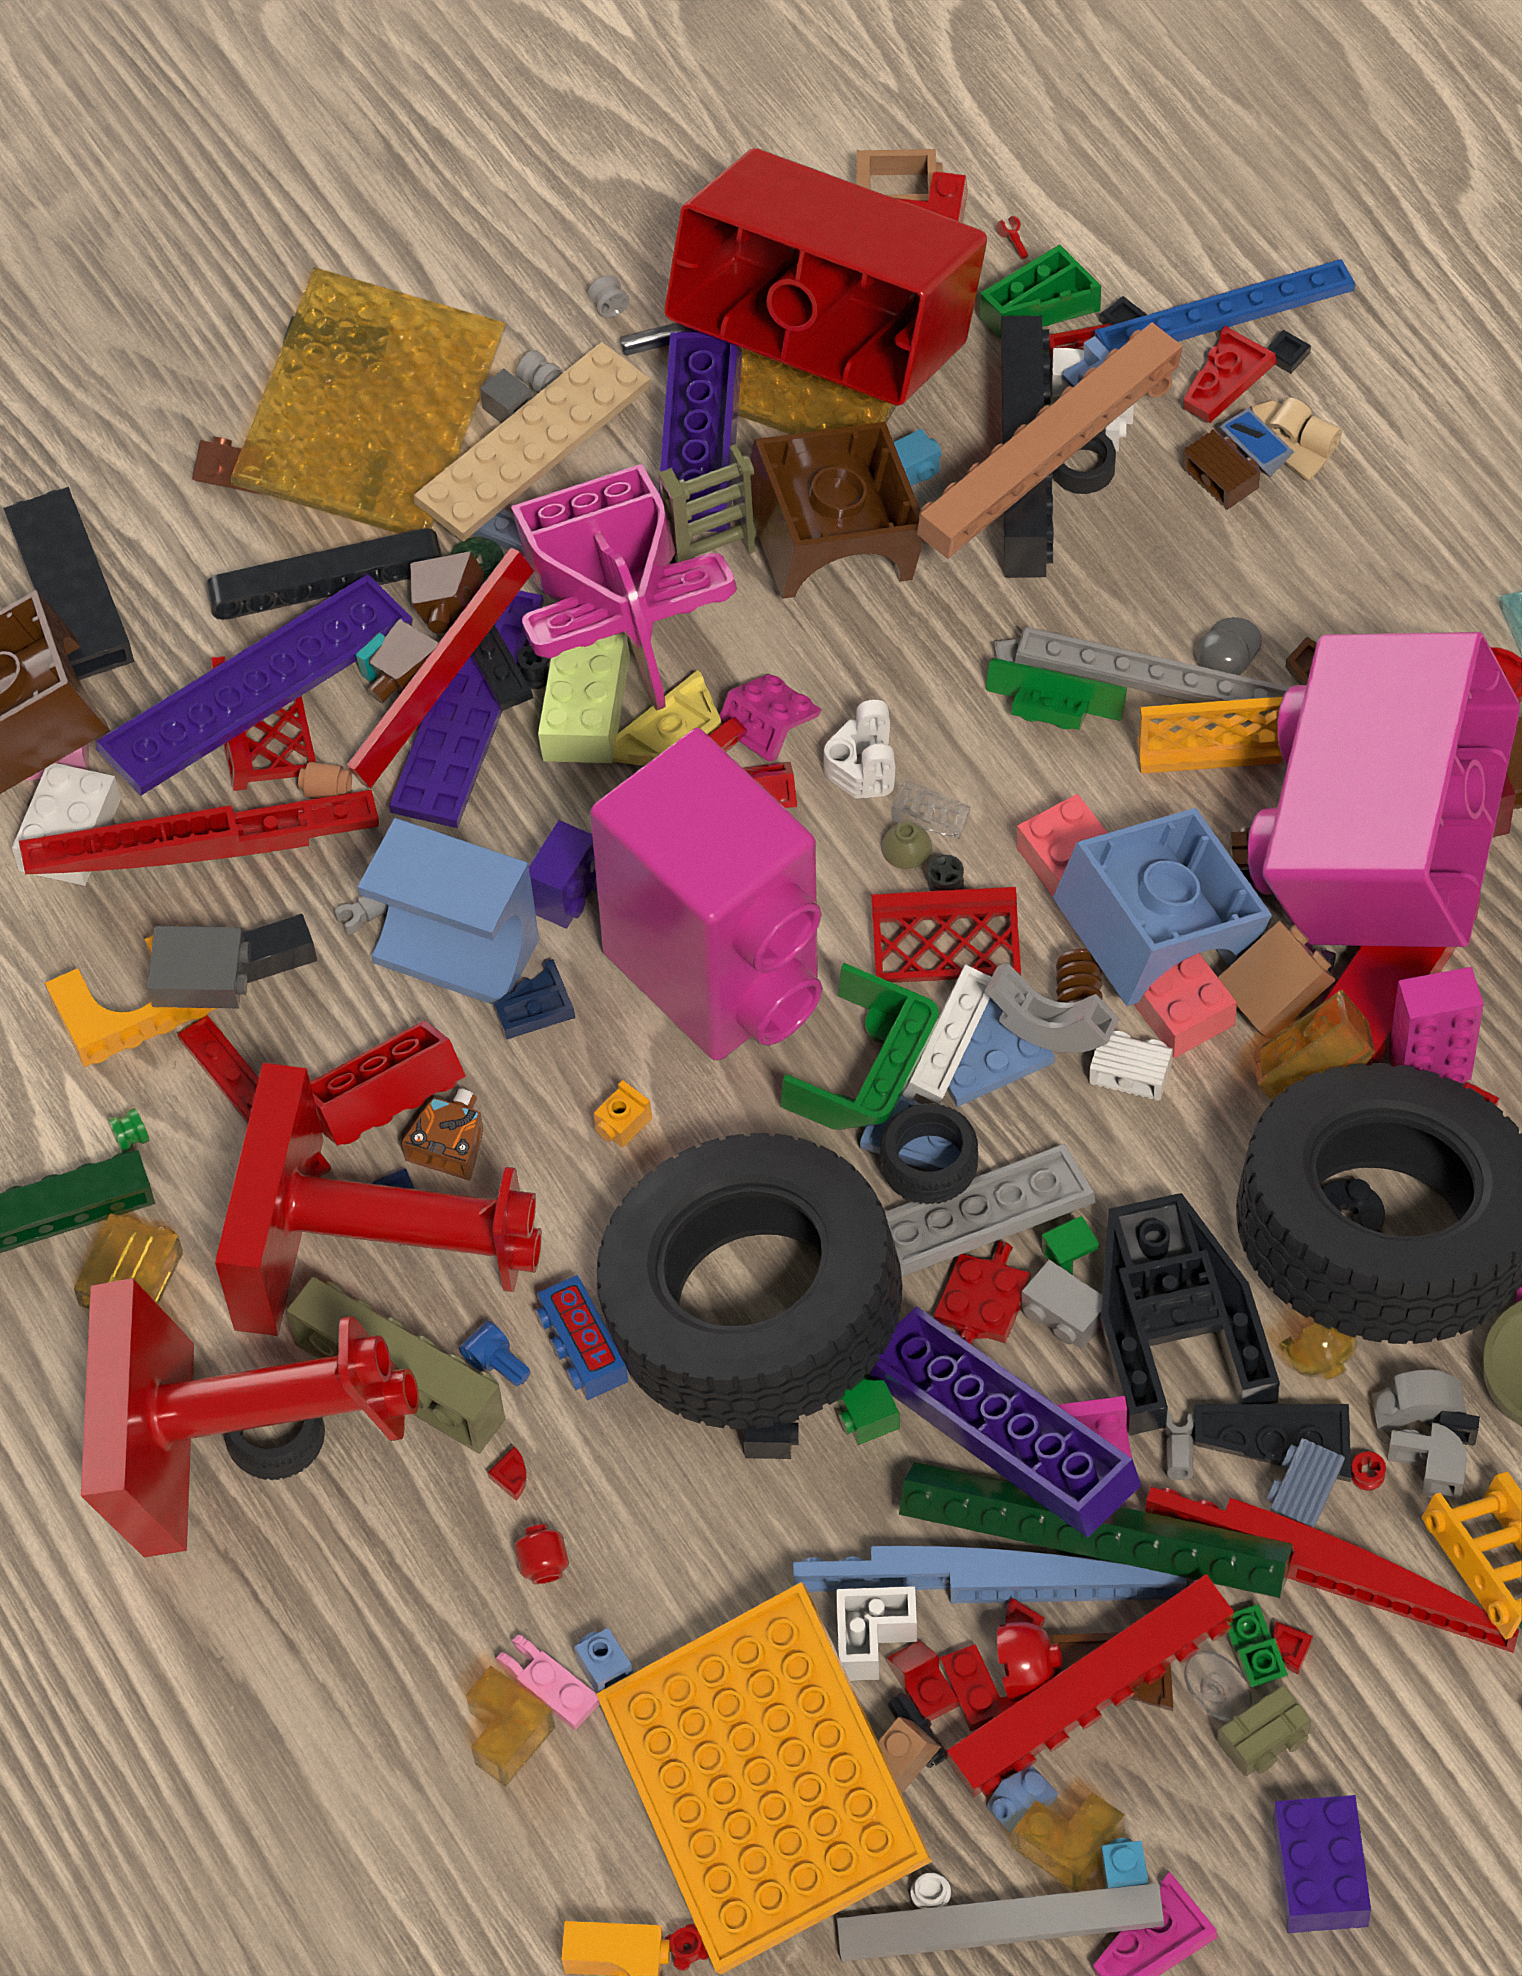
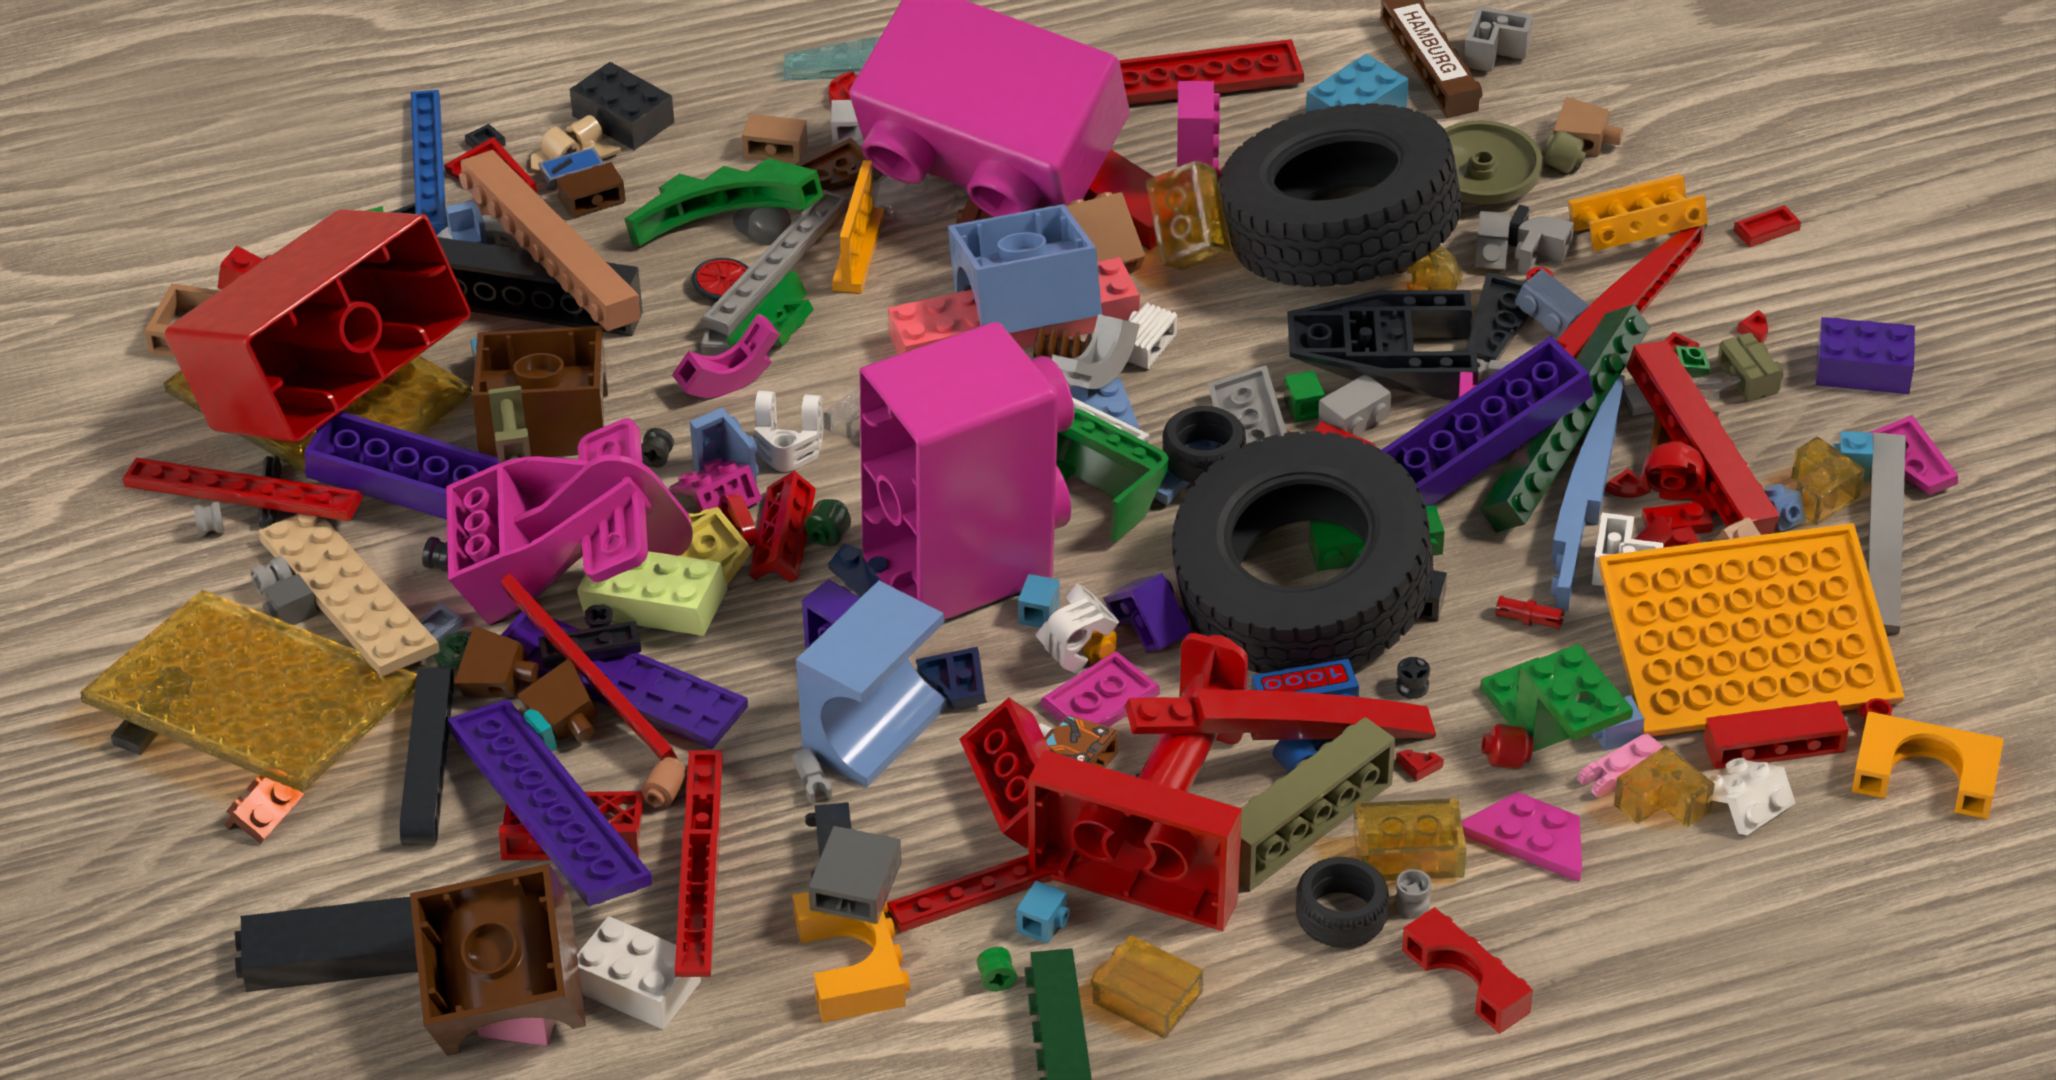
camera: 80 degrees left, 15 degrees down
(149, 1408) = (1341, 948): red piece -> none
(174, 1602) = (1438, 943): none -> red arch
(212, 1154) = (1042, 912): none -> dark azure brick
(298, 1488) = (1413, 893): none -> light grey wheel
(368, 1479) = (1411, 836): none -> clear yellow brick
(427, 1603) = (1530, 832): none -> dark pink wing
(483, 1308) = (1274, 715): none -> red slope
(523, 1812) = (1753, 792): none -> white bracket
(545, 1145) = (1100, 691): none -> dark pink tile
(592, 1581) = (1557, 697): none -> green bracket
(594, 1084) = (1073, 626): none -> white piece
(622, 1834) = (1776, 734): none -> red brick
(631, 1433) = (1413, 677): none -> black wheel
(650, 323) = (242, 489): none -> red tile
(654, 1143) = (1151, 610): none -> dark purple brick
(665, 1052) = (1038, 600): none -> dark azure brick
(767, 1547) = (1529, 612): none -> red pin
(814, 643) = (656, 447): none -> pearl dark grey wheel
(818, 707) = (721, 437): none -> medium blue bracket
(951, 671) = (732, 369): none -> dark pink arch
(1117, 626) = (716, 276): none -> red wheel
(1228, 567) = (727, 189): none -> green arch
(1356, 1734) = (1755, 324): none -> red tile
(1369, 607) = (774, 138): none -> medium nougat brick
(1375, 457) = (623, 105): none -> black brick

